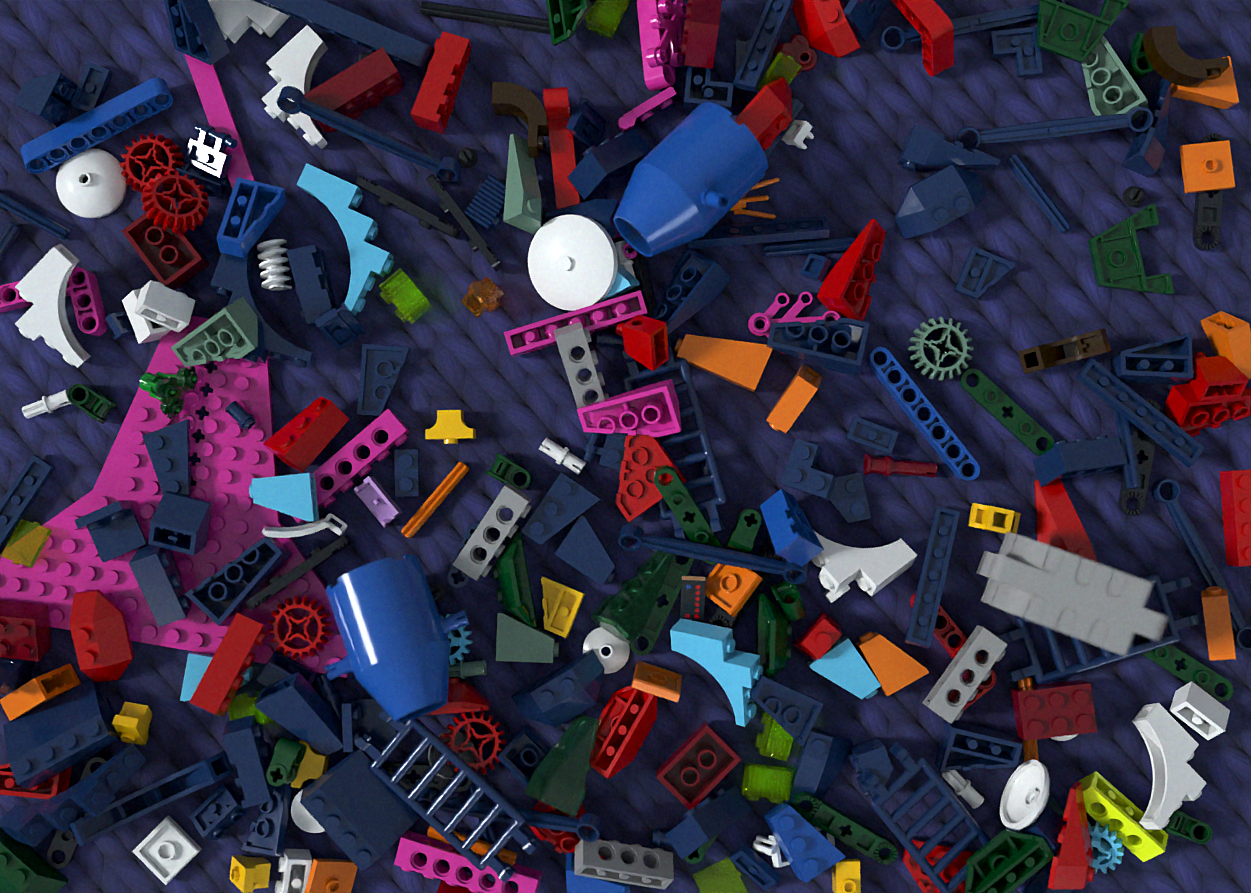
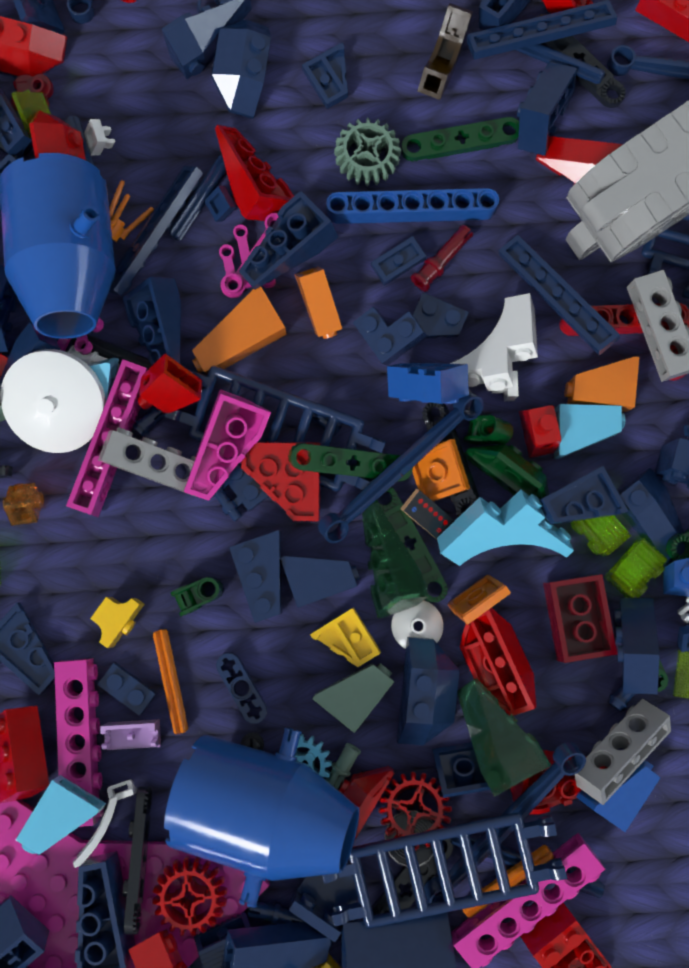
camera: 60 degrees left, 5 degrees down
(468, 560) = (243, 690): light grey brick -> none
(515, 582) = (295, 661): dark green wedge -> none
(562, 455) = (217, 537): white pin -> none
(743, 535) = (403, 429): dark green piece -> none
(993, 519) = (544, 211): yellow brick -> none

